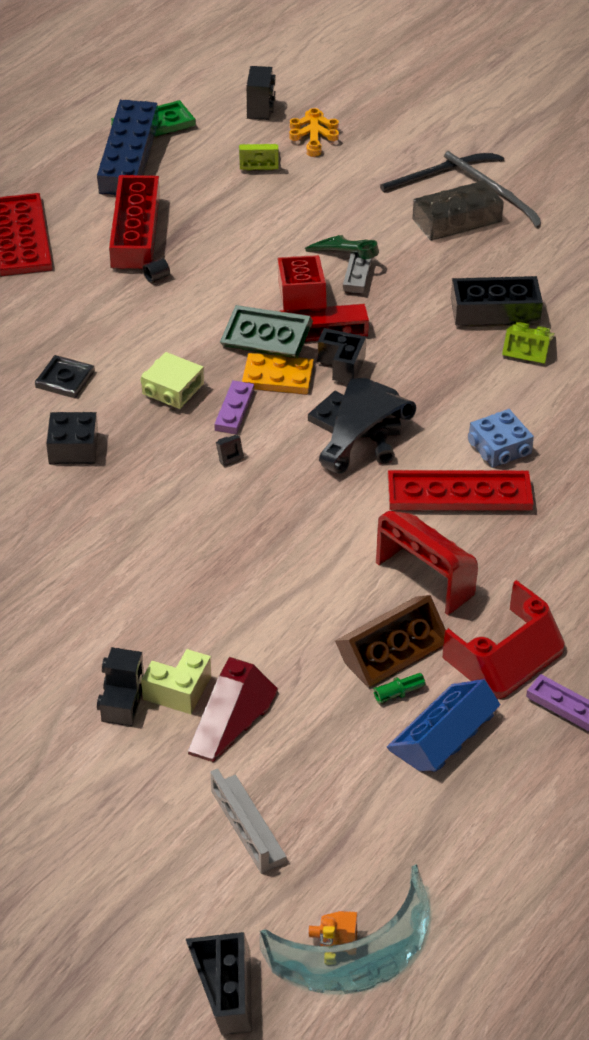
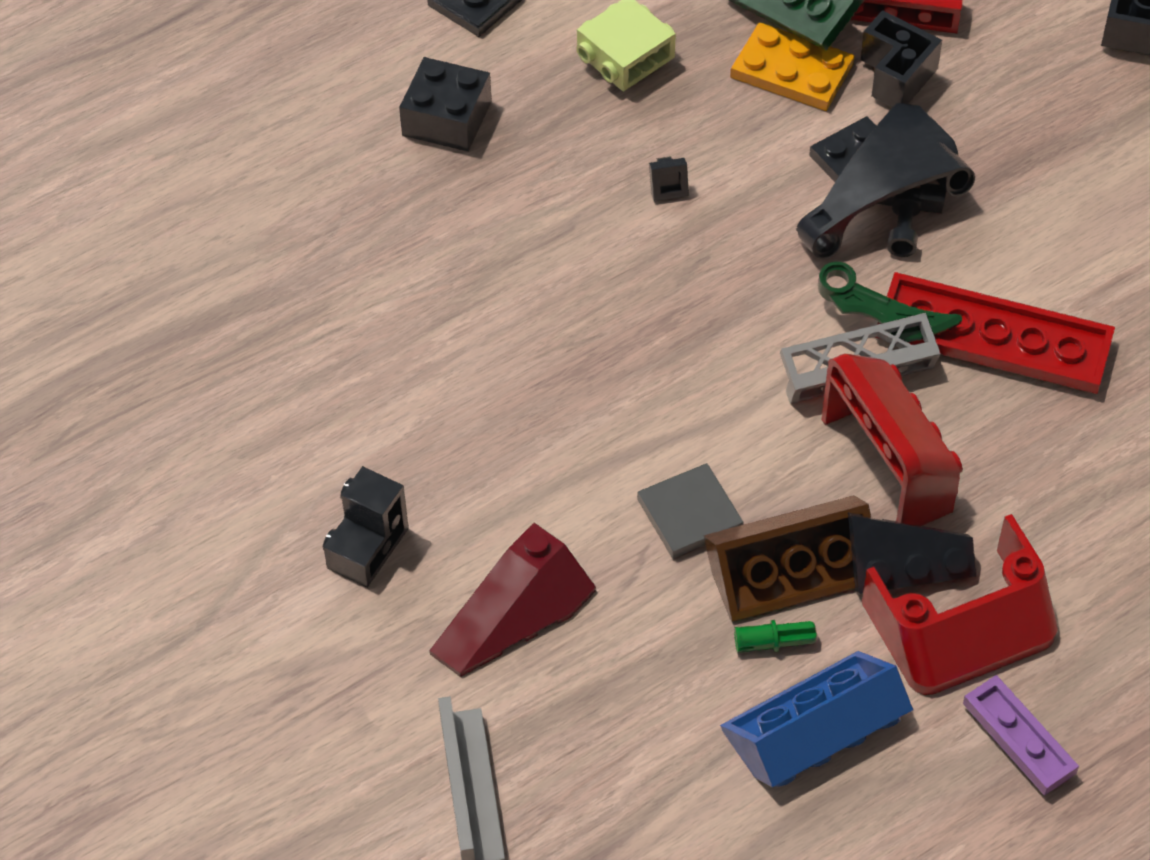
camera: 20 degrees right, 10 degrees up
(179, 686) = (455, 546): yellowish green brick -> none
(234, 407) = (705, 108): medium lavender plate -> none
(316, 631) = (688, 509): none -> dark grey tile
(368, 540) = (907, 359): none -> light grey fence
(403, 494) = (864, 301): none -> dark green piece
(462, 618) = (908, 553): none -> black wing
(500, 438) = (1093, 260): medium blue brick -> none

